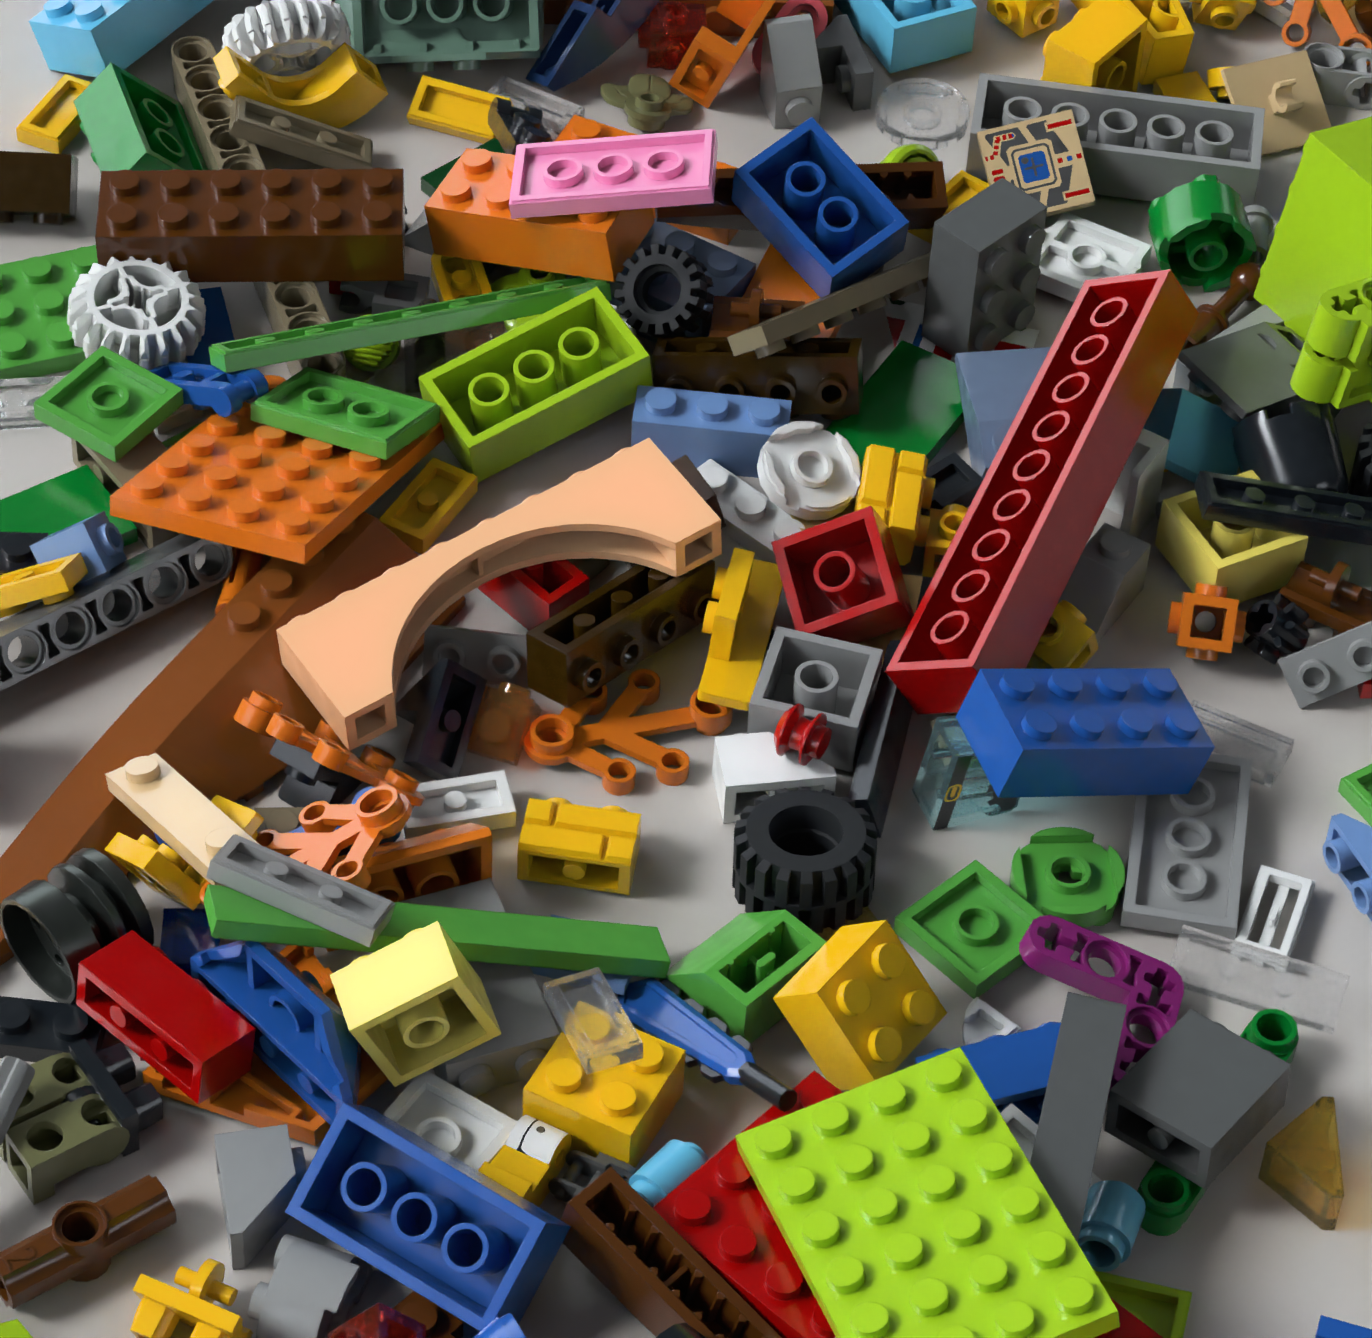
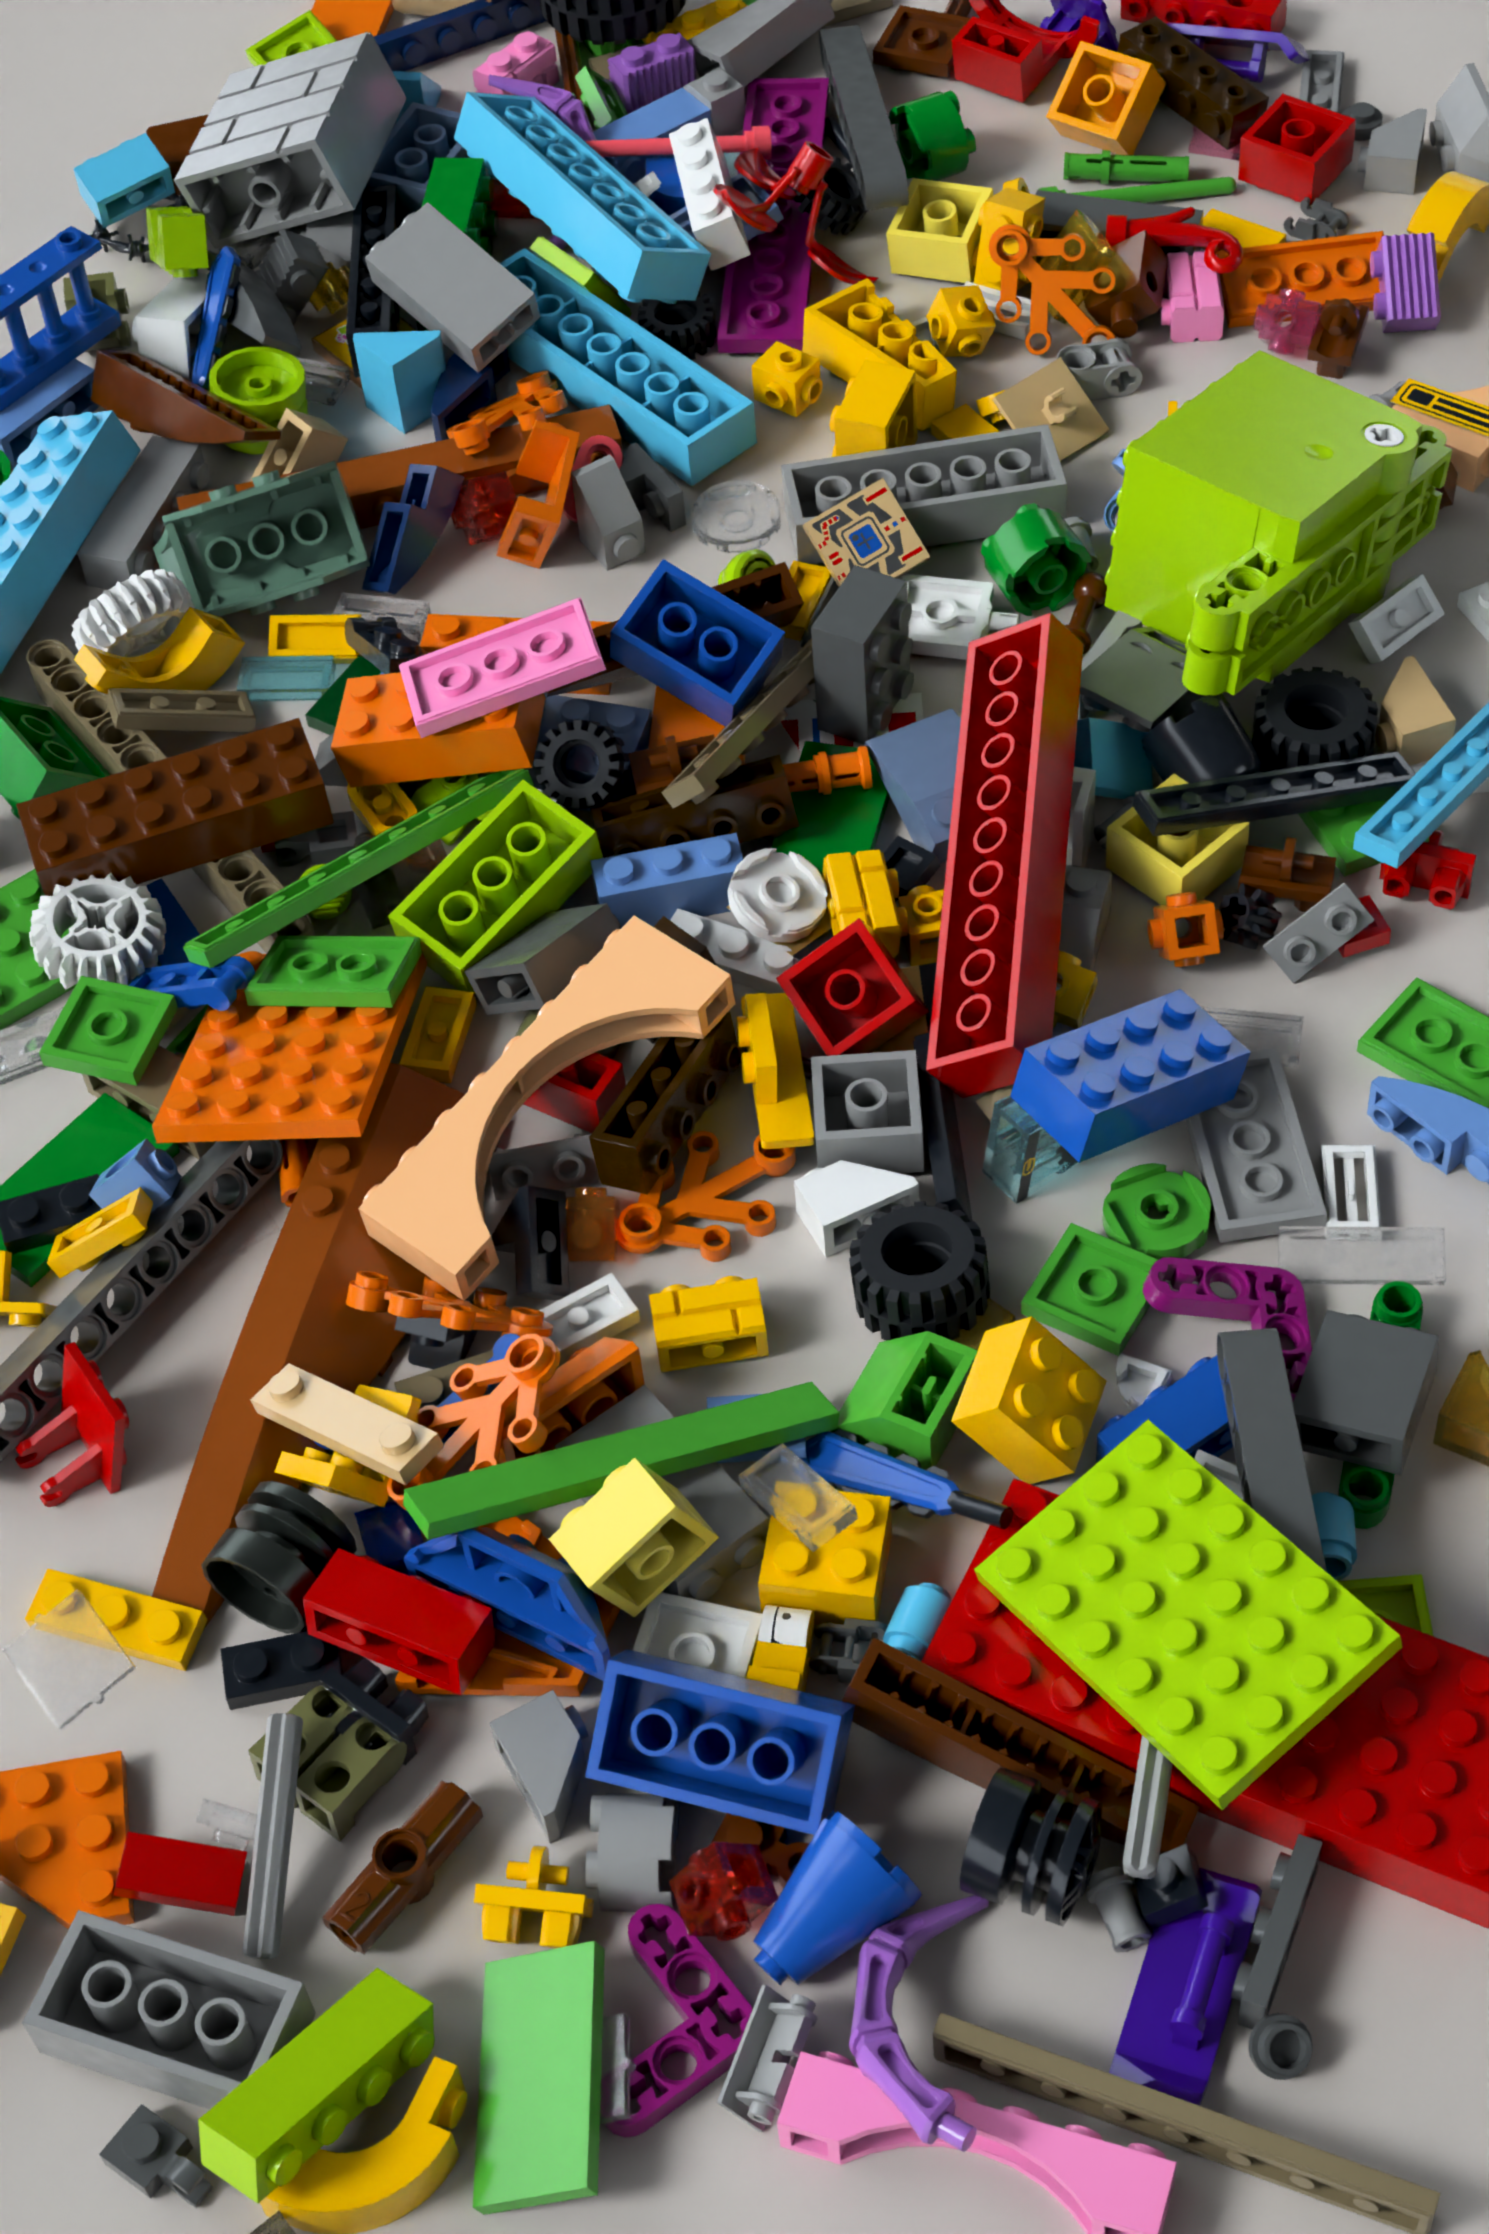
camera: 10 degrees left, 5 degrees up
(301, 890) = (490, 1465): light grey tile -> none
(417, 138) = (286, 677): none -> clear light blue tile
(542, 460) = (540, 959): none -> dark grey brick
(646, 101) = (482, 578): olive plate -> none
(801, 734) = (876, 1156): red wheel -> none
(909, 373) = (830, 772): none -> orange pin

